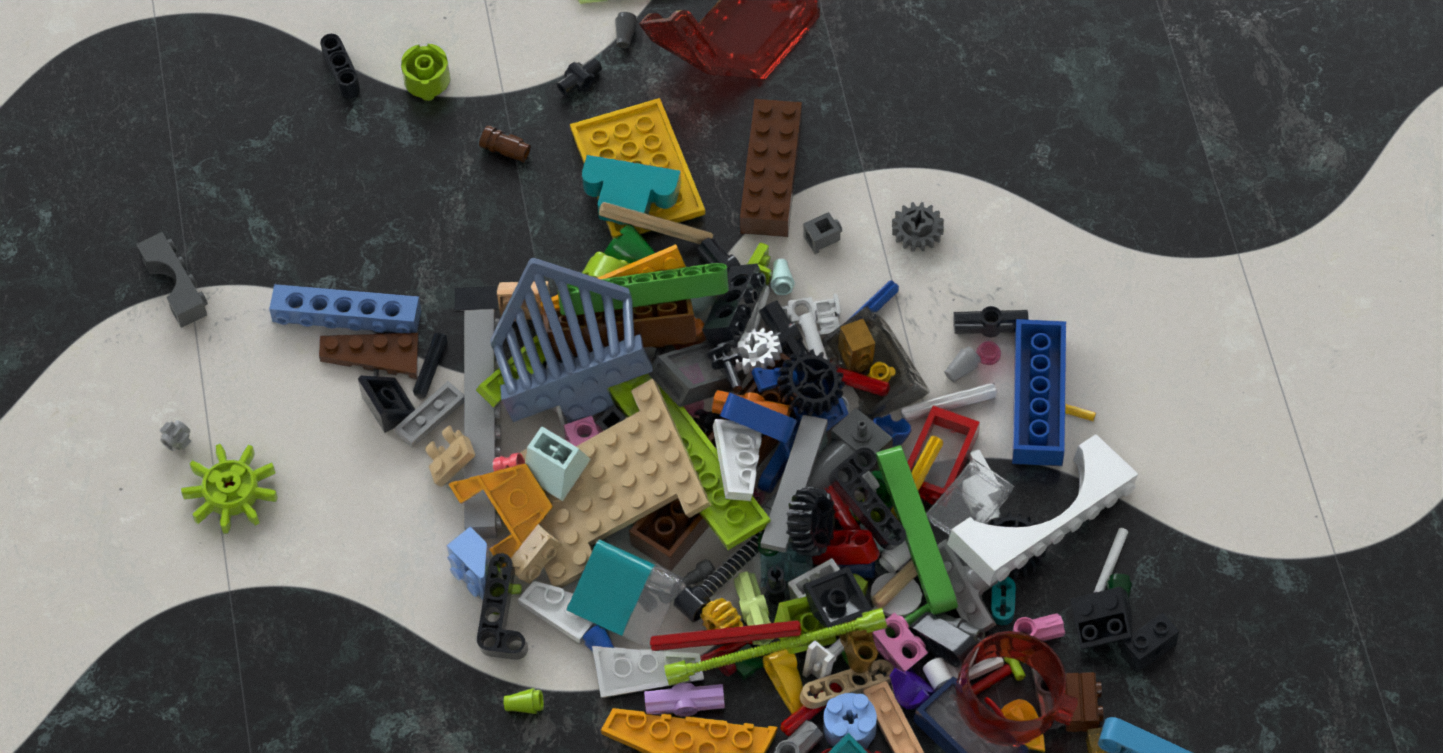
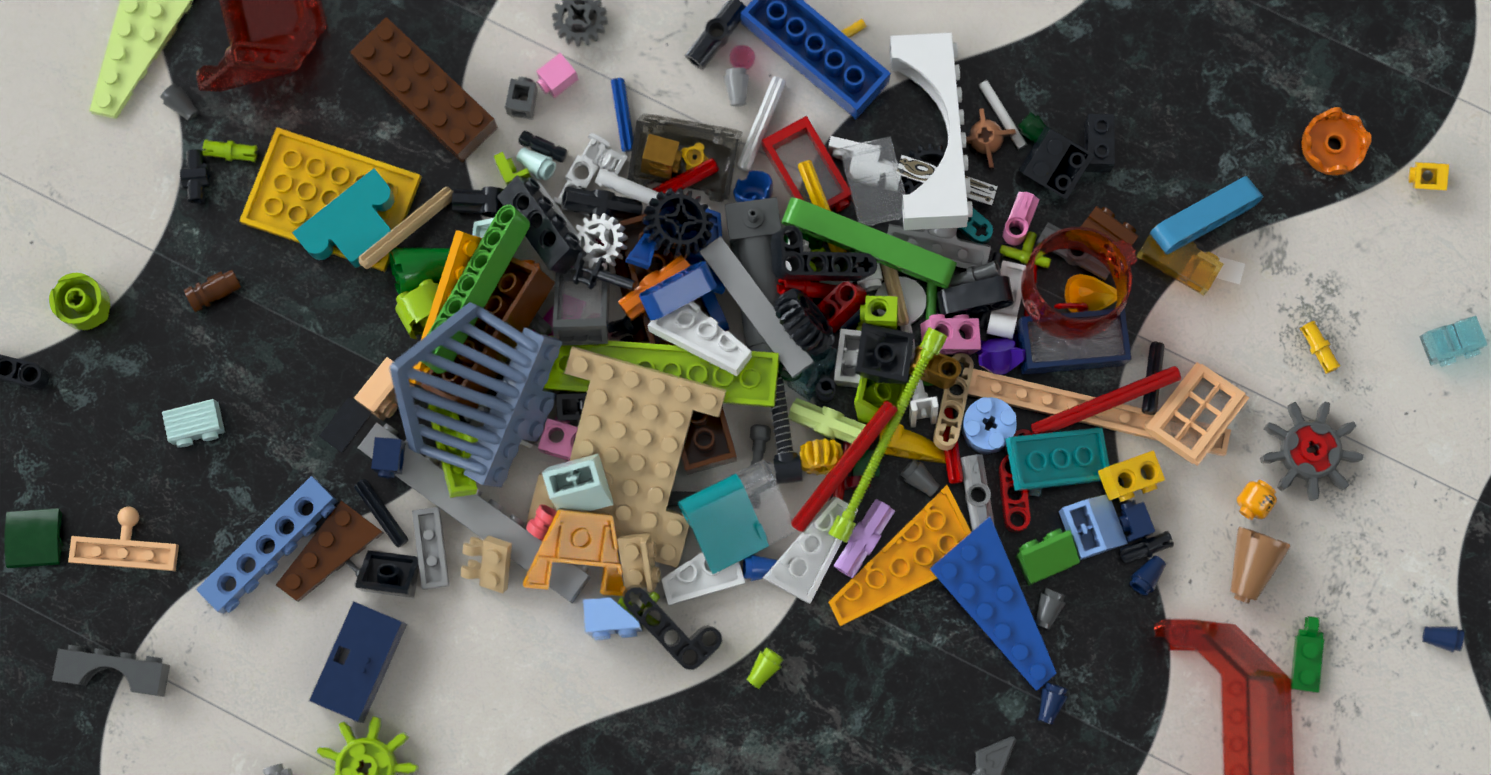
camera: 50 degrees left, 20 degrees up
(230, 165) = (33, 538): none -> dark green slope
(267, 227) = (124, 551): none -> light nougat plate
(305, 426) = (358, 662): none -> dark blue brick
(396, 201) = (193, 422): none -> light aqua brick
(472, 330) = (388, 456): none -> dark blue brick
(617, 84) = (229, 150): none -> lime pin
(766, 704) = (919, 477): none -> dark grey cone
(799, 273) = (542, 146): none -> black axle
(860, 242) = (556, 75): none -> bright pink brick
(877, 576) = (886, 303): none -> lime brick
(1027, 574) = (922, 171): none -> sticker
(1080, 560) = (987, 137): none -> nougat piece

